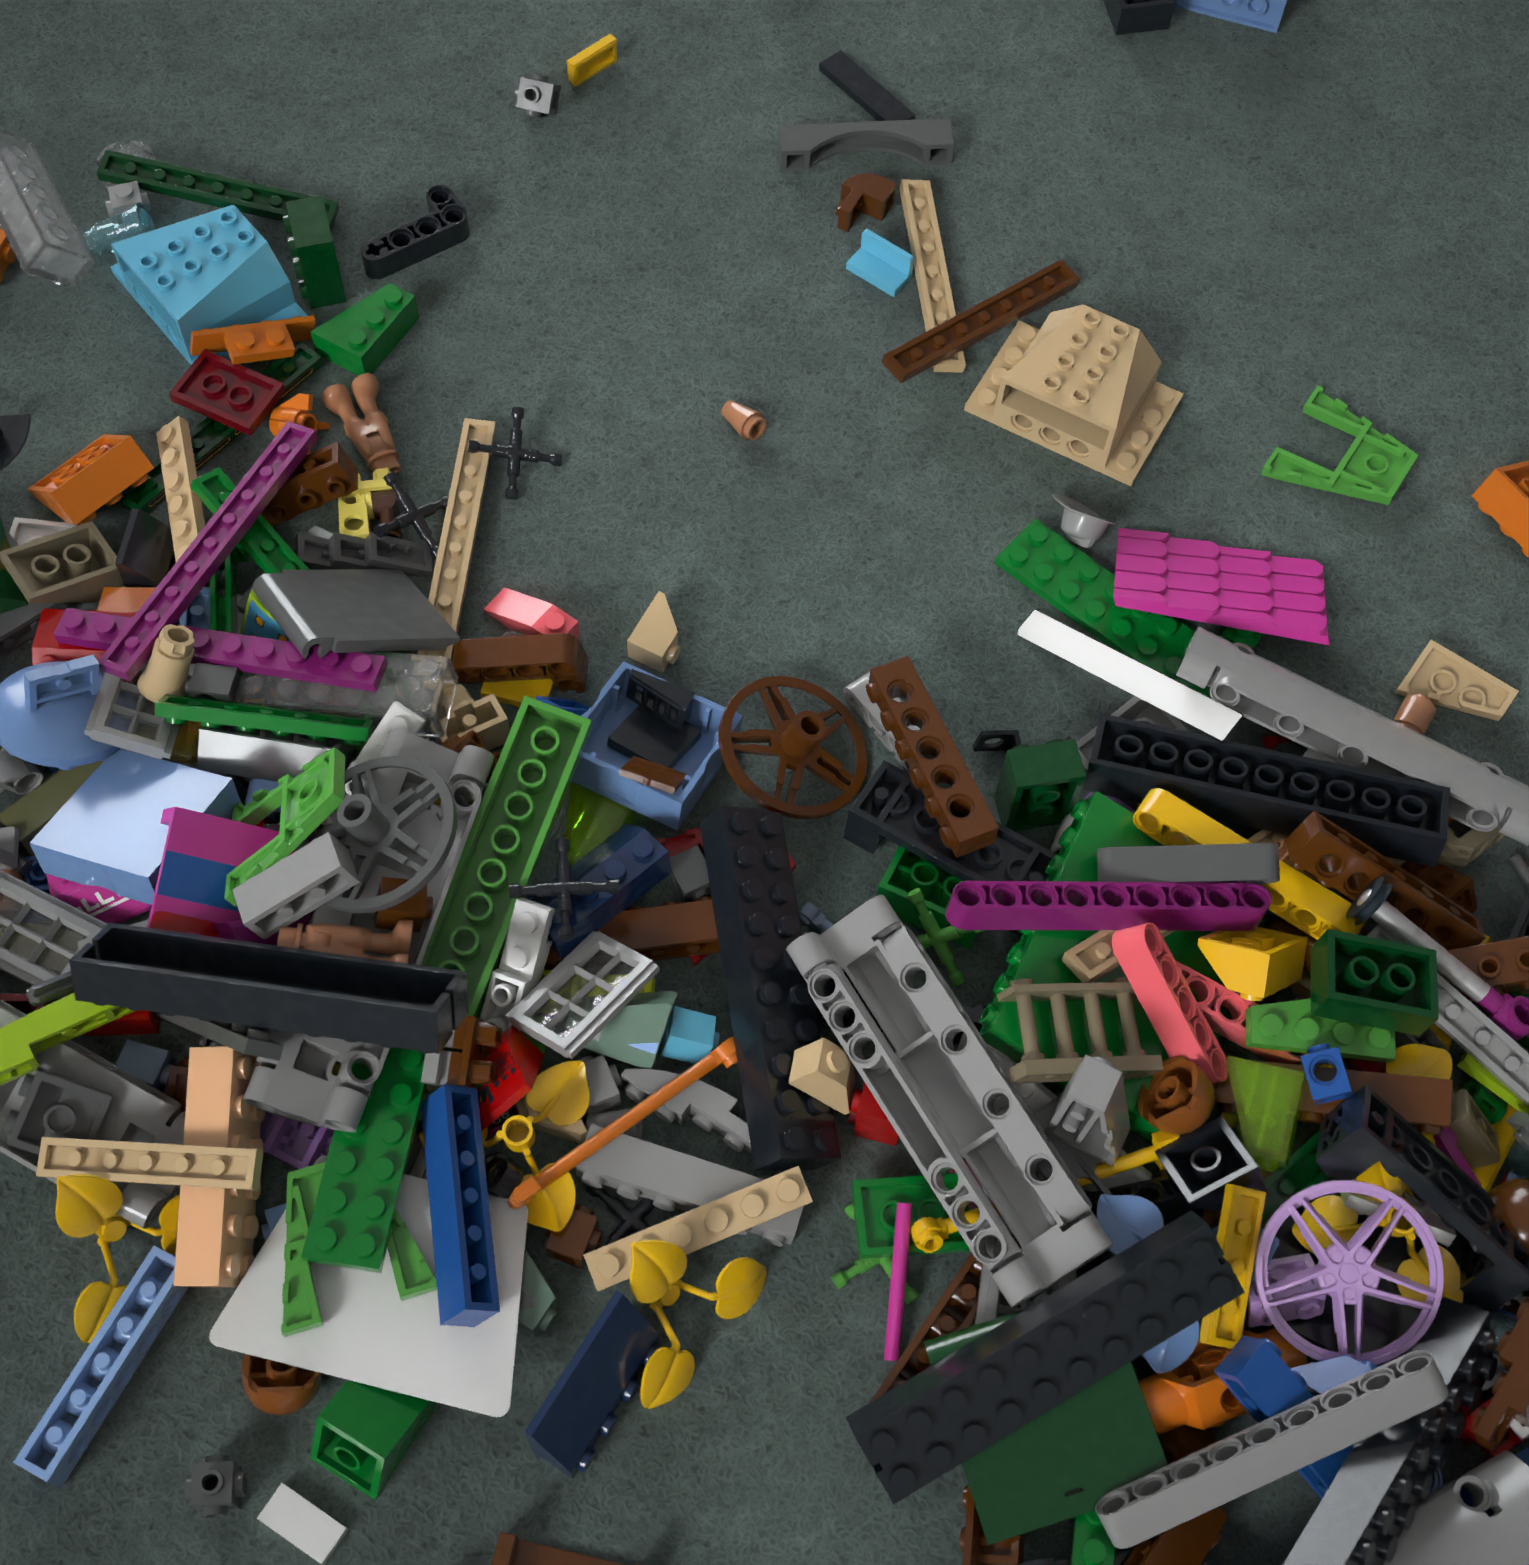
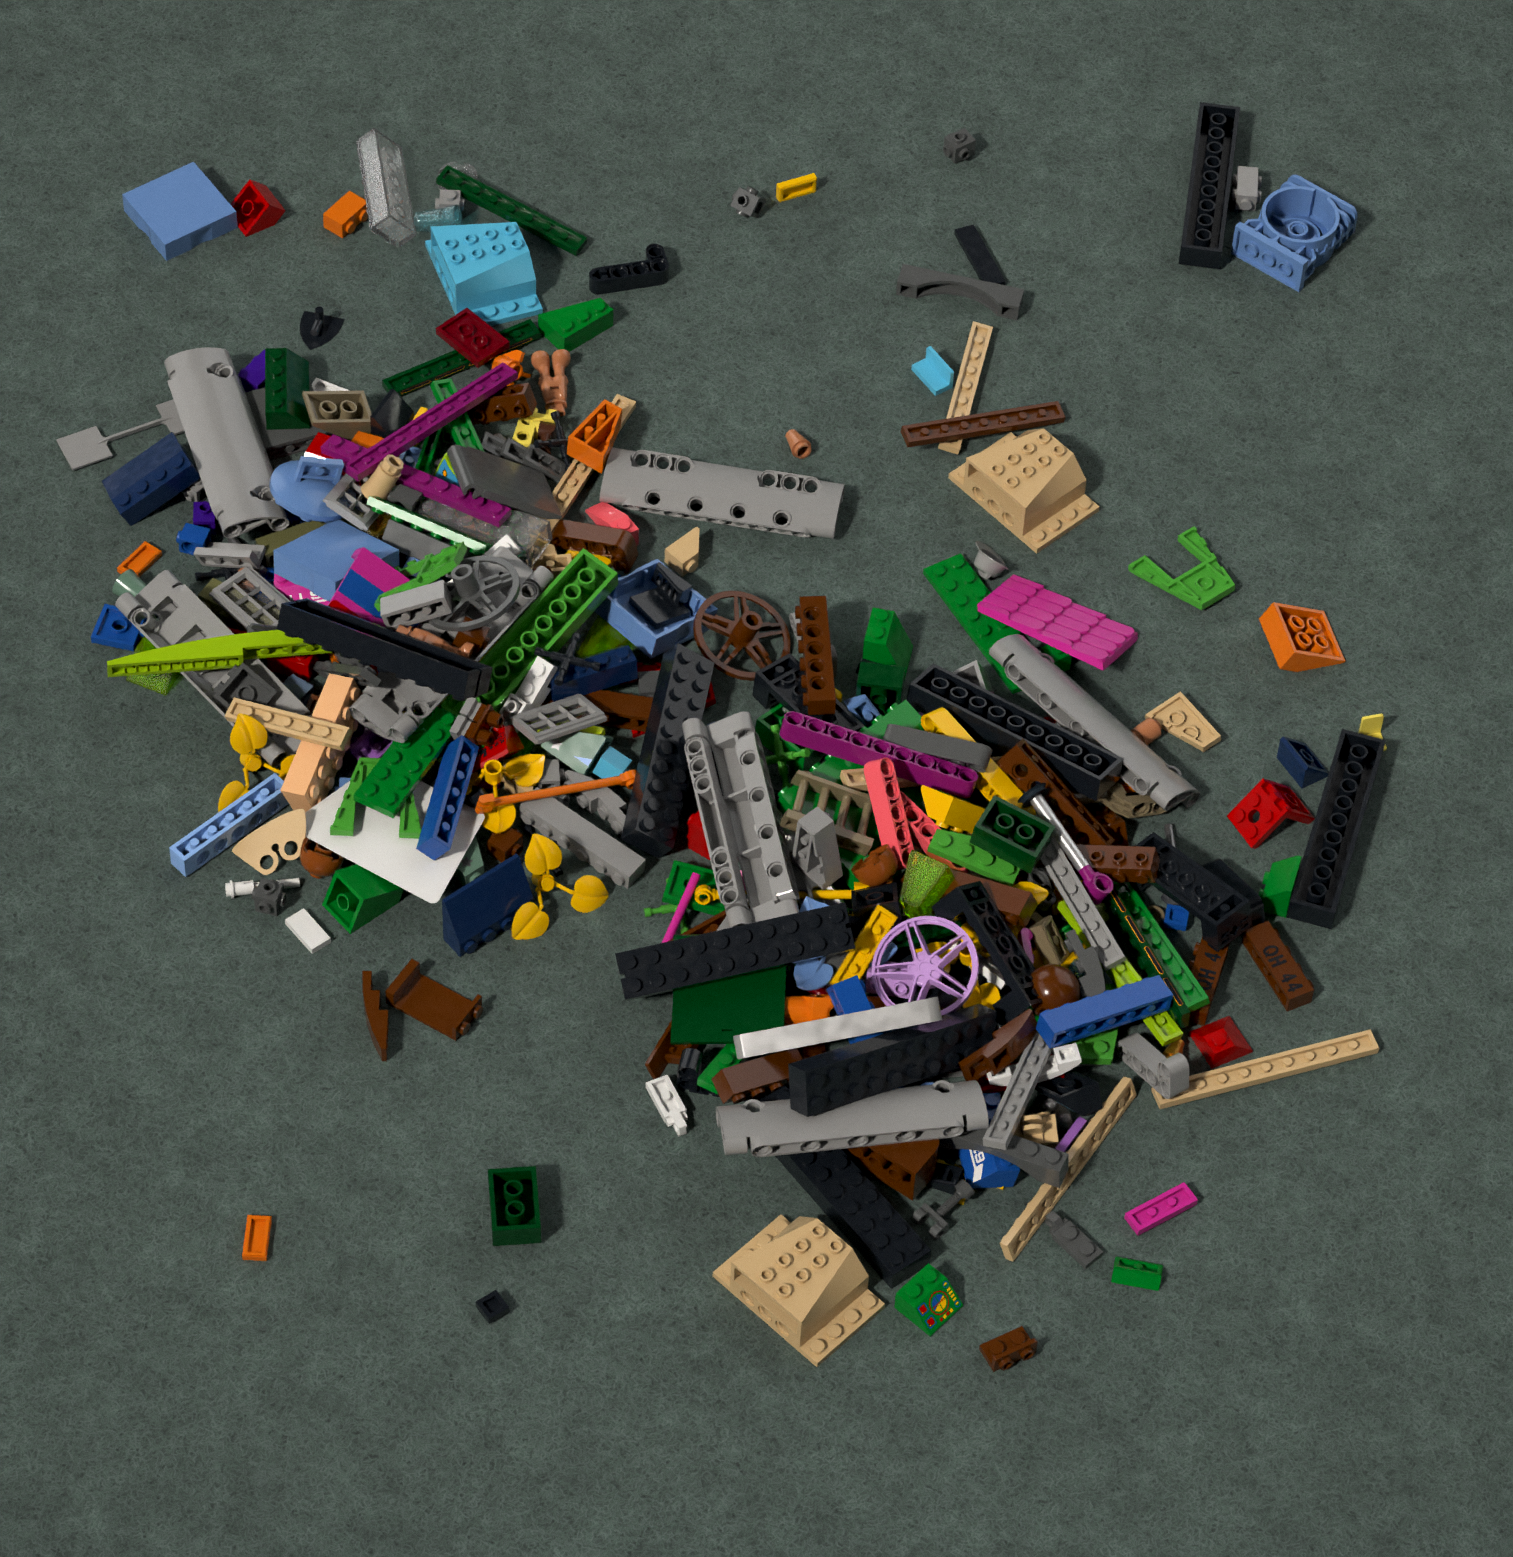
camera: 20 degrees right, 10 degrees down
(93, 478) = (372, 366): orange slope -> none
(175, 1473) = (246, 887): none -> white pin
(178, 472) = (425, 373): tan plate -> none
(194, 1353) = (278, 831): none -> tan piece
(255, 340) = (500, 310): orange bracket -> none
(314, 252) = (558, 266): dark green brick -> none
(462, 495) = (596, 436): none -> orange wedge
(514, 453) = (641, 423): black piece -> none
(652, 774) = (645, 619): reddish brown piece -> none
(672, 526) = (721, 493): none -> light grey panel
(705, 1224) = (594, 853): tan plate -> none
(824, 1073) = (679, 798): tan slope -> none
(866, 195) = (942, 324): reddish brown brick -> none
(1004, 696) = (887, 640): none -> green slope
(1029, 821) = (862, 709): none -> medium blue slope
(1130, 675) = (967, 651): white sticker -> none
(1330, 1091) = (961, 864): blue brick -> none

